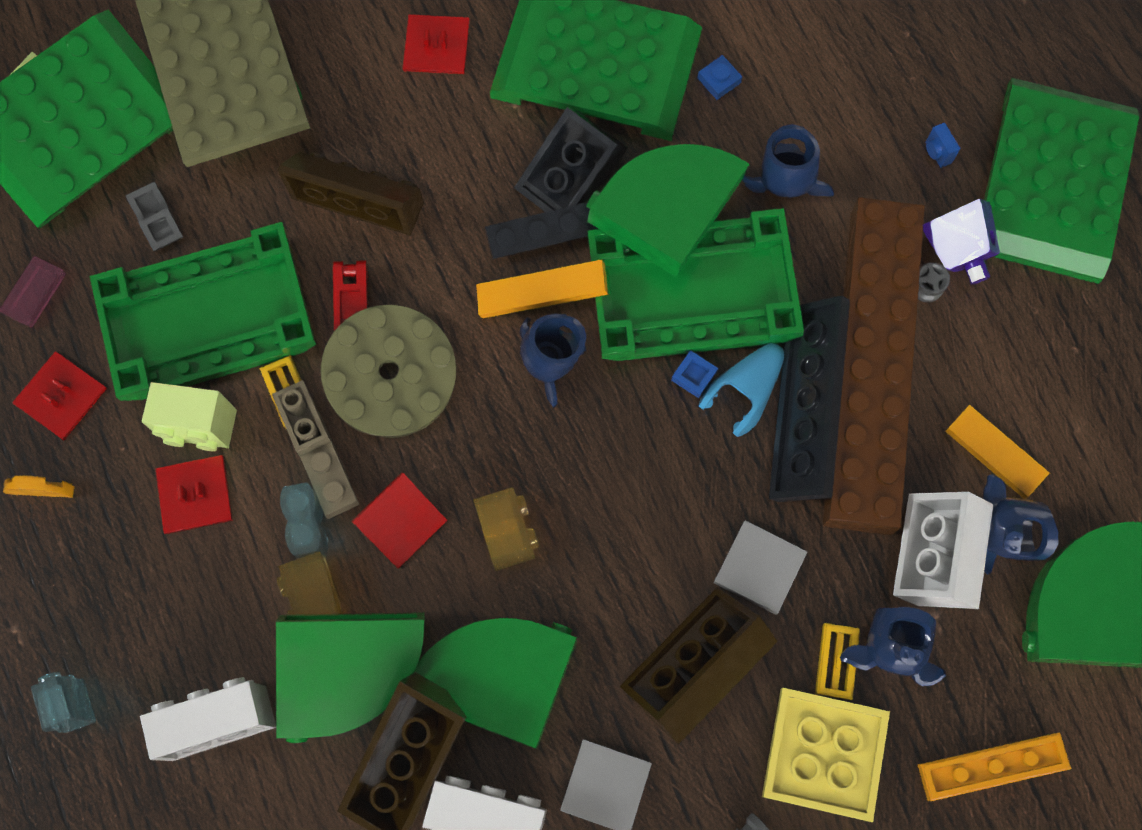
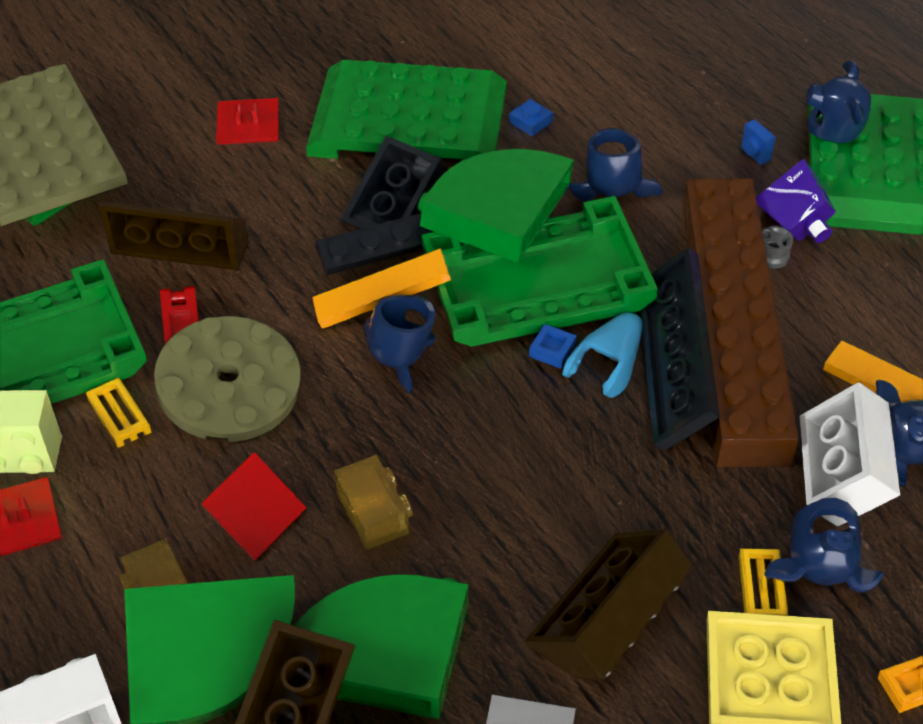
camera: 10 degrees left, 25 degrees down
(304, 515) = (144, 511): clear light blue brick -> none
(315, 449) = (153, 452): dark tan slope -> none
(760, 567) = (658, 503): light grey tile -> none
(1035, 128) = (844, 106): none -> dark blue piece

